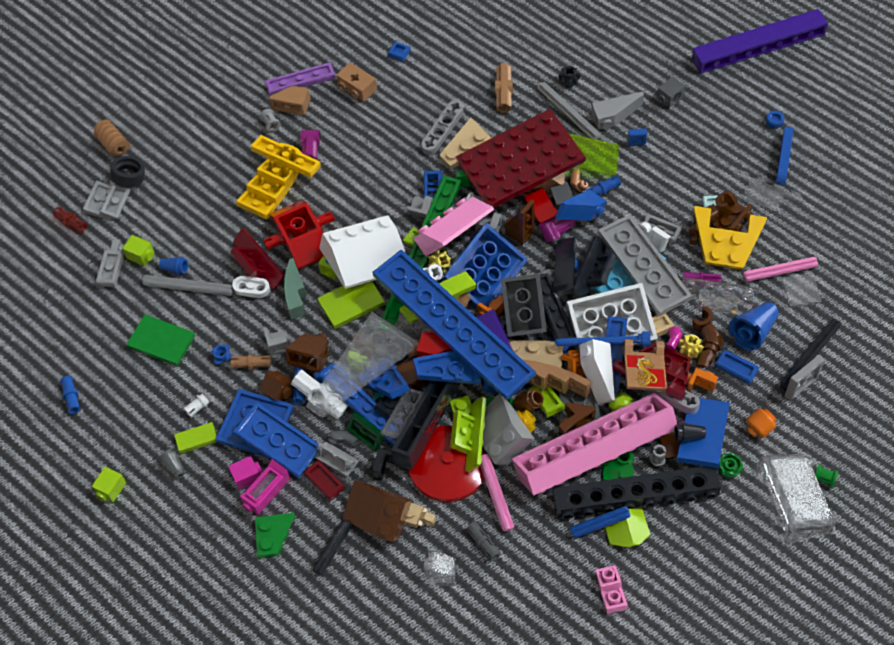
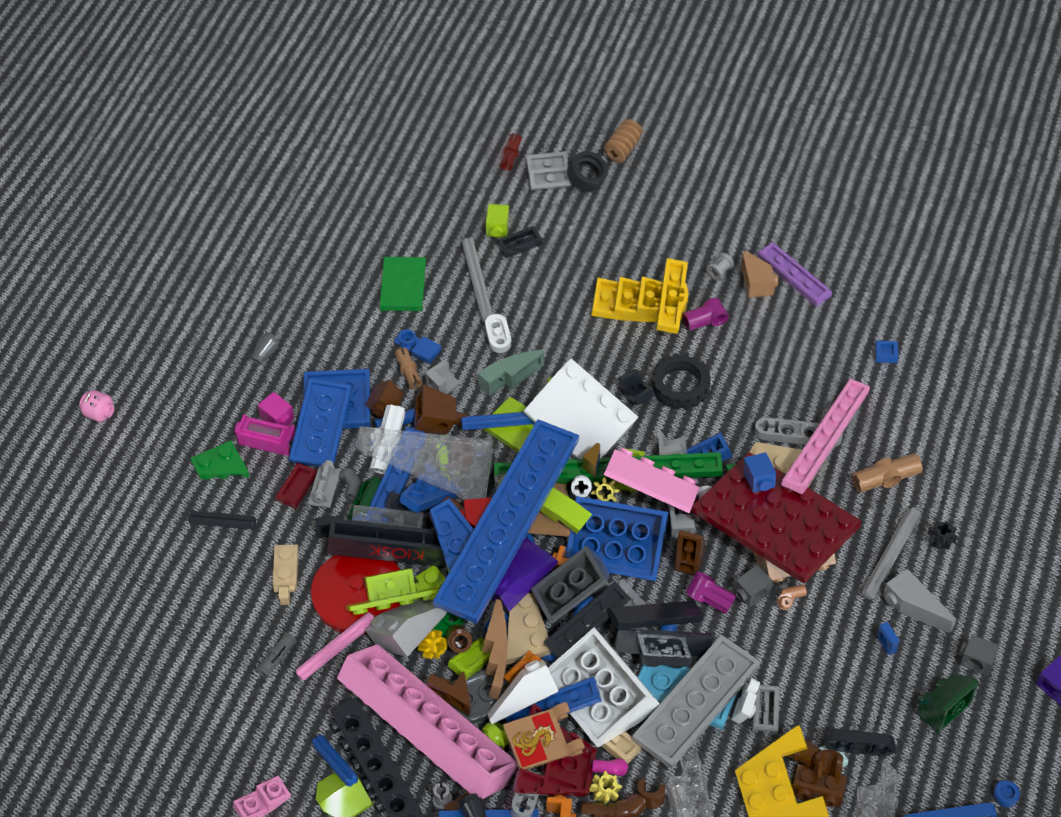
camera: 65 degrees right, 5 degrees down
(70, 394) = (309, 236): blue pin -> none
(108, 485) = (222, 306): lime brick -> none
(111, 265) = (470, 206): light grey hinge -> none
(162, 619) = (96, 405): none -> bright pink head
(166, 243) = (521, 245): none -> black tile
(175, 265) = (494, 259): blue cone -> none
(196, 405) = (339, 342): white pin -> none
(196, 438) = (302, 356): lime tile -> none
(238, 343) = (426, 350): none -> blue tile
(255, 260) = (529, 320): dark red bracket -> none
(299, 232) = (587, 341): red slope -> none
(338, 313) = (495, 420): none -> blue axle
(355, 212) = (635, 388): none -> black bracket
(356, 82) = (814, 325): medium nougat brick -> none
(357, 167) = (681, 363): none -> black tyre
(377, 510) = (270, 543): reddish brown slope -> none
(415, 254) = (591, 460): none -> pearl gold slope
(440, 569) = (223, 621): clear slope -> none
(463, 107) = (825, 436): none -> bright pink tile
(485, 150) = (759, 472): none -> blue brick
(543, 206) = (732, 567): red slope -> none
(582, 207) = (743, 606): blue slope -> none
(600, 155) = (835, 598): clear neon green piece -> none
(604, 186) = (793, 624): blue pin -> none
(619, 469) = (414, 763): green plate -> none
(642, 339) = (579, 725): blue piece -> none
(701, 120) = (946, 701): none -> dark green slope
(702, 276) = (711, 774): magenta axle -> none
(712, 181) = (860, 742): none -> black beam

